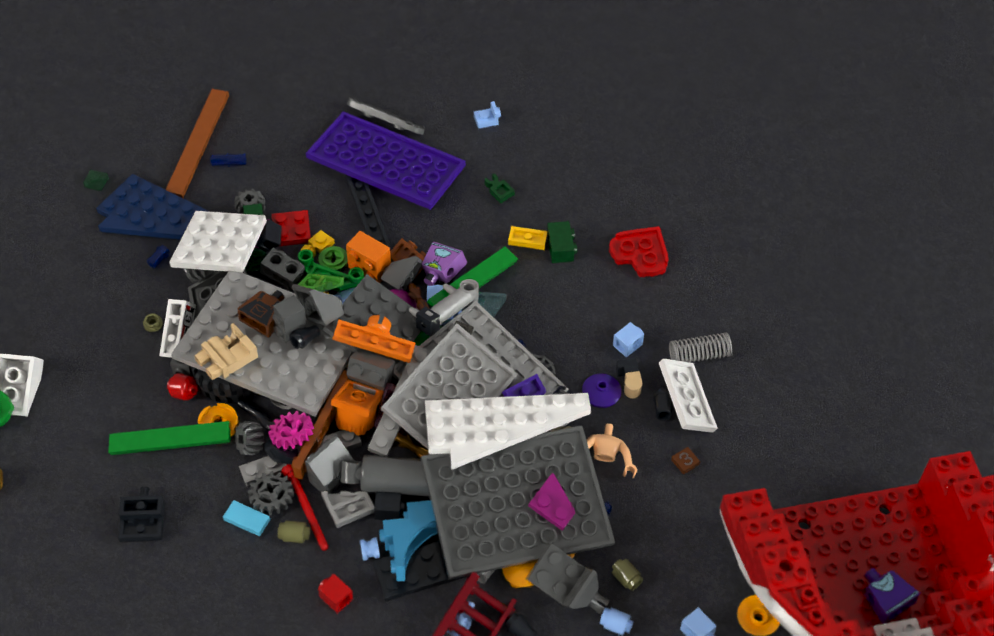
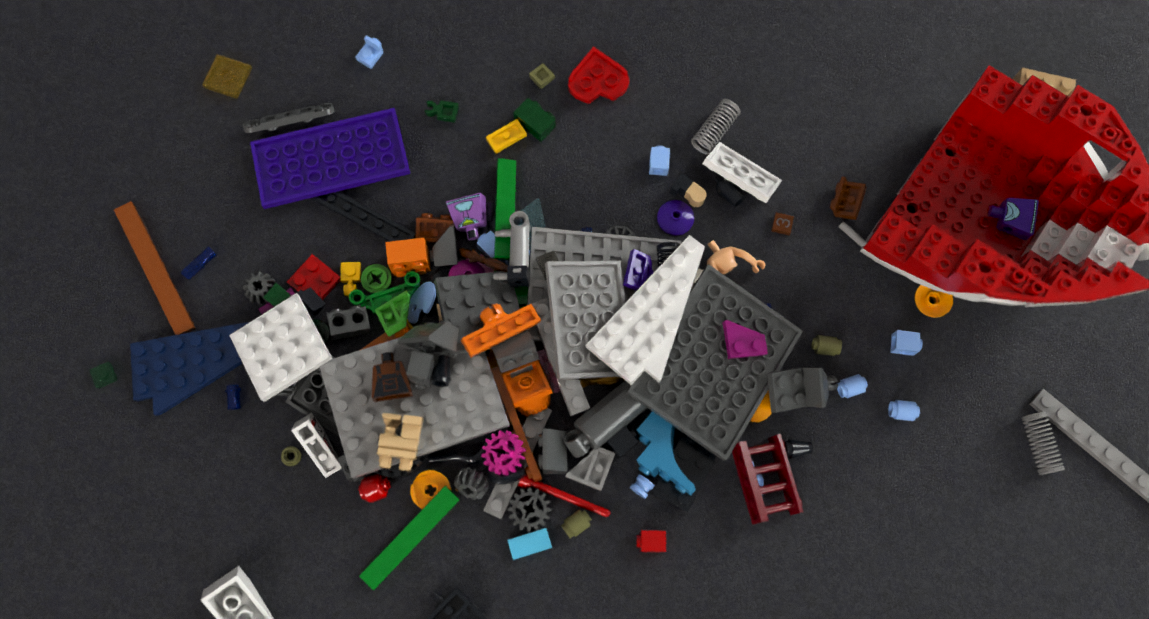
camera: 45 degrees left, 20 degrees up
(373, 64) = (227, 76): none -> clear yellow tile
(598, 218) = (542, 76): none -> olive plate
(761, 477) = (848, 199): none -> reddish brown bracket

